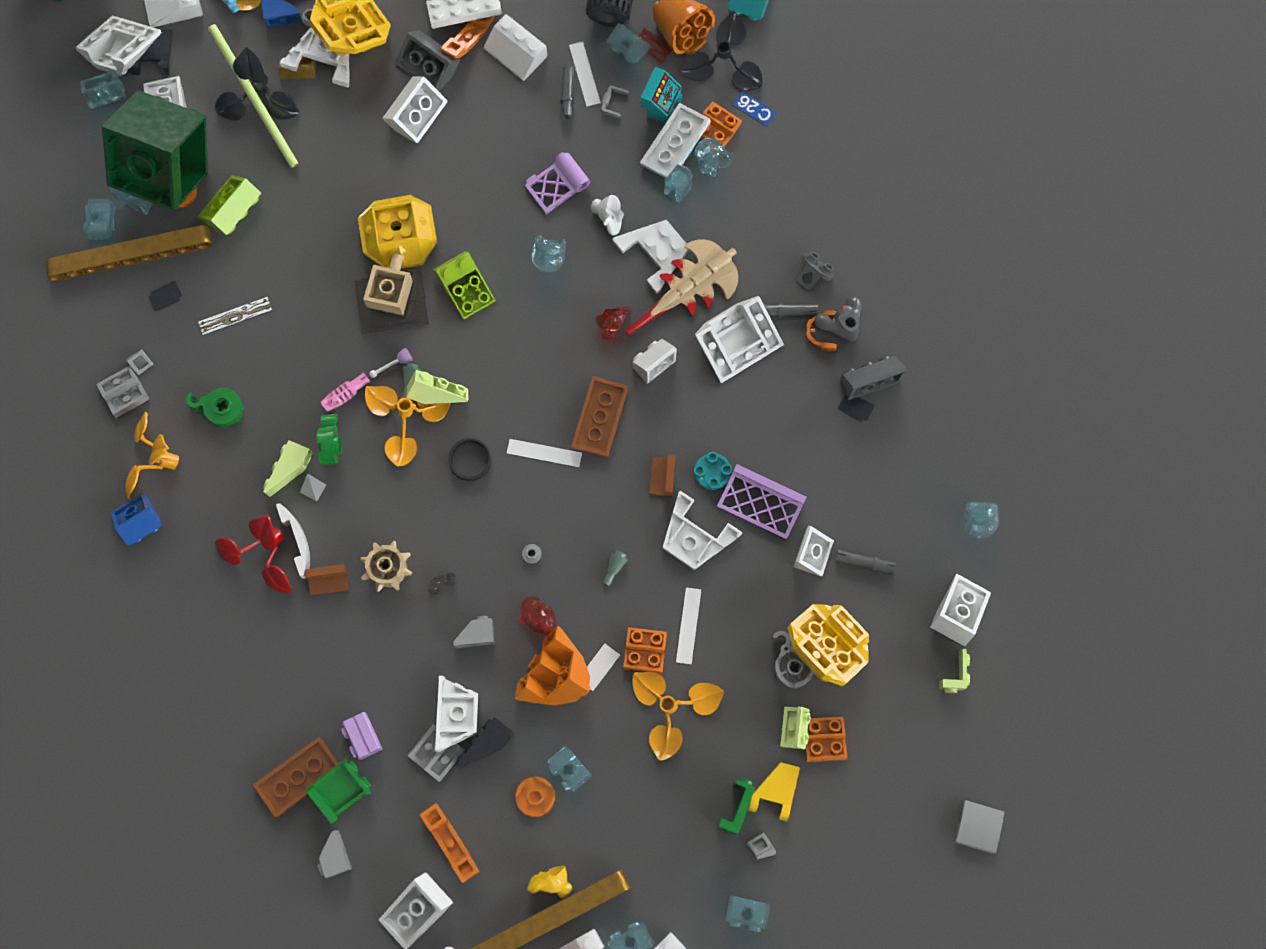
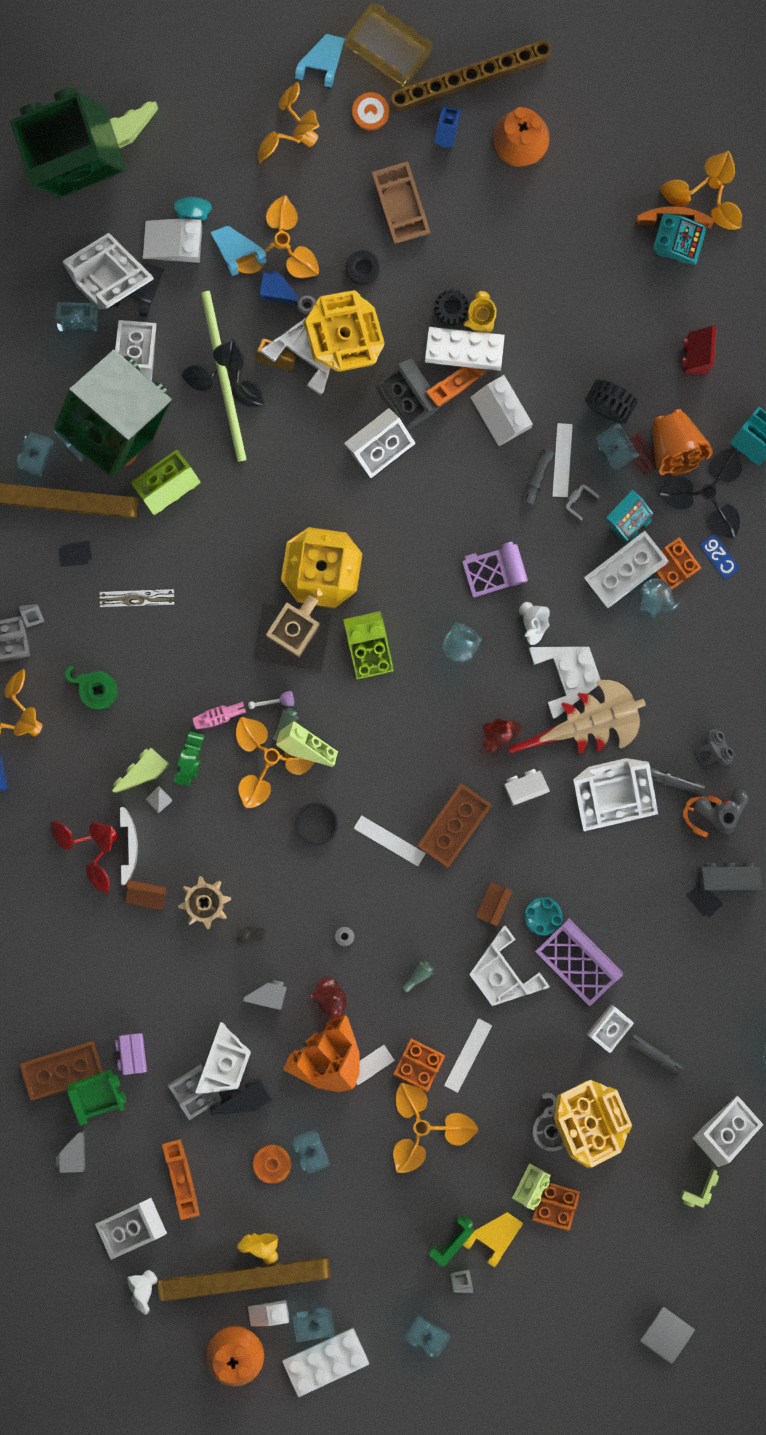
camera: 20 degrees right, 10 degrees up
(678, 184) = (613, 616): clear light blue brick -> none

